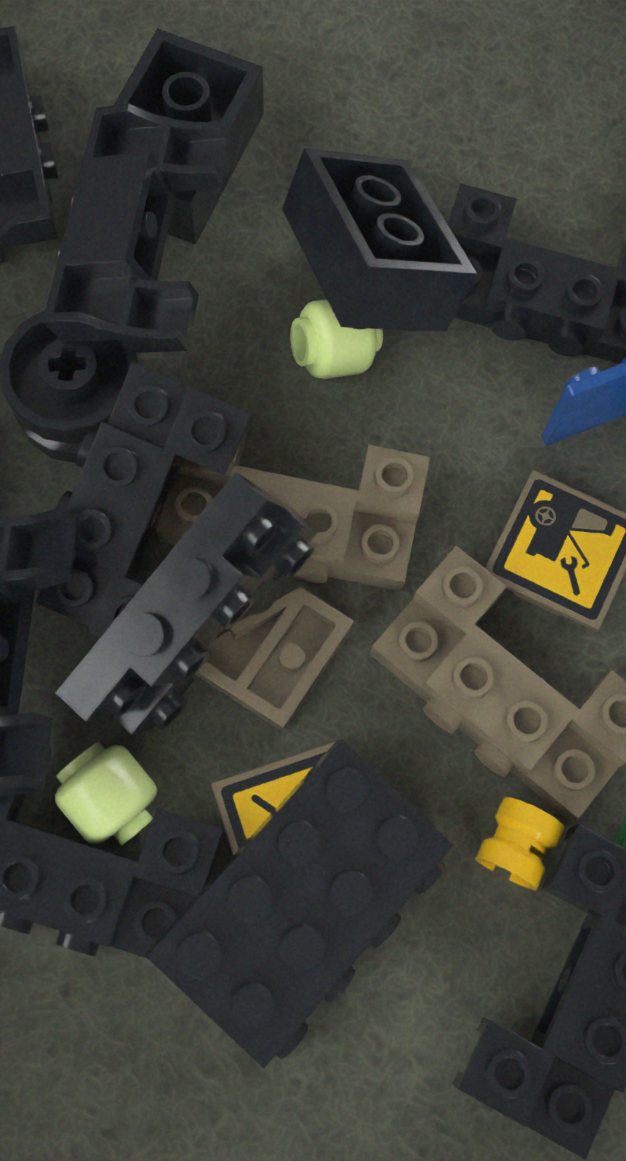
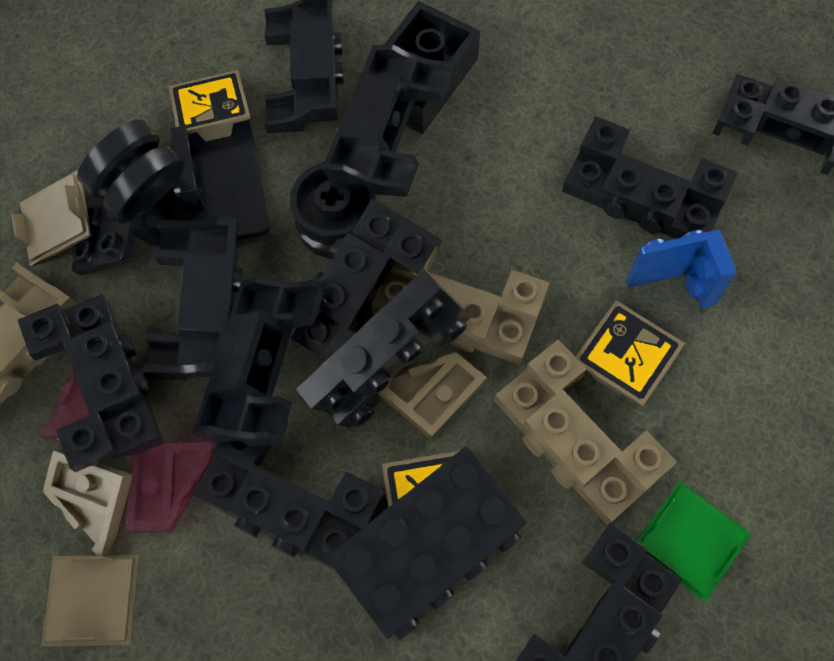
camera: 15 degrees right, 5 degrees down
(105, 794) = (316, 460): yellowish green head -> none
(327, 347) = (502, 202): yellowish green head -> none
(376, 242) = (535, 146): black brick -> none
(520, 842) = (572, 530): yellow wheel -> none

